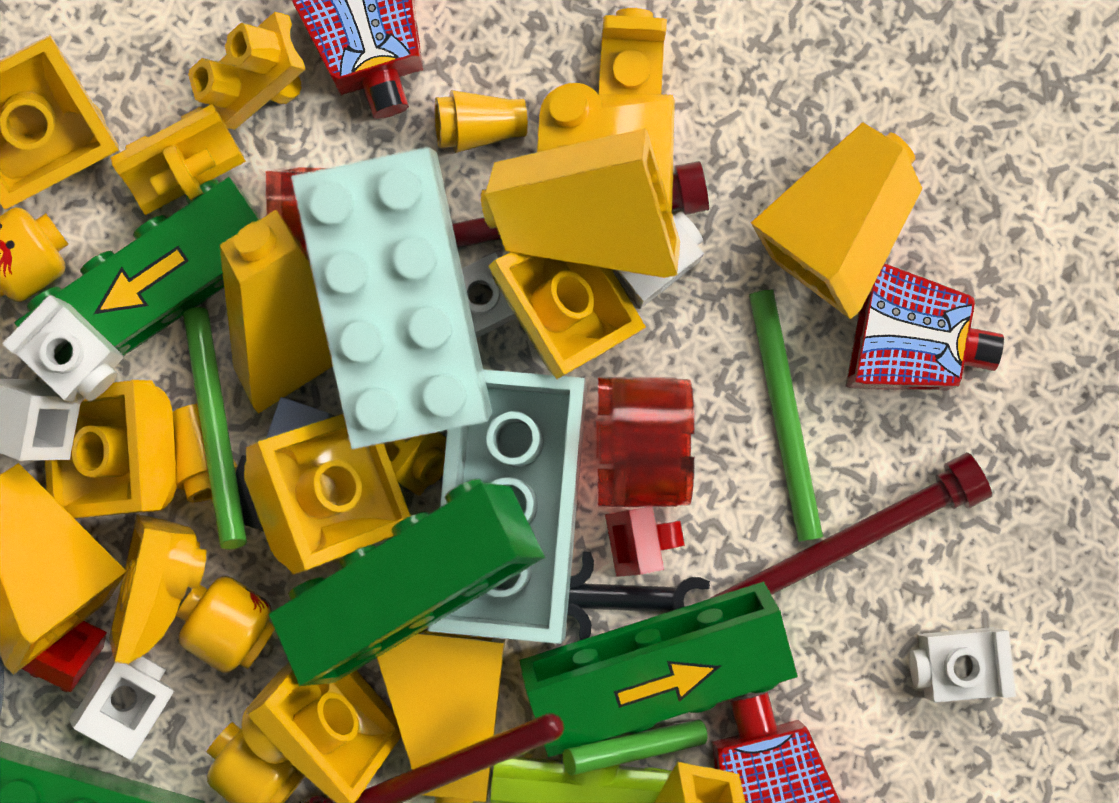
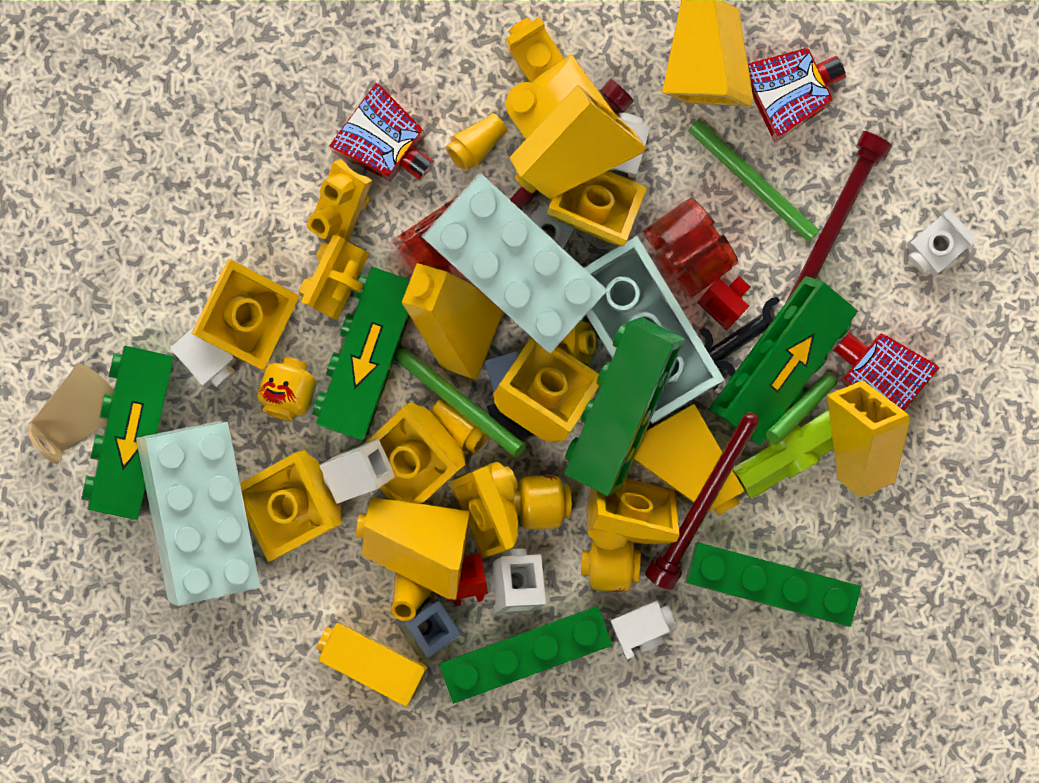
camera: 30 degrees left, 0 degrees up
(47, 332) = (343, 420): white brick -> none

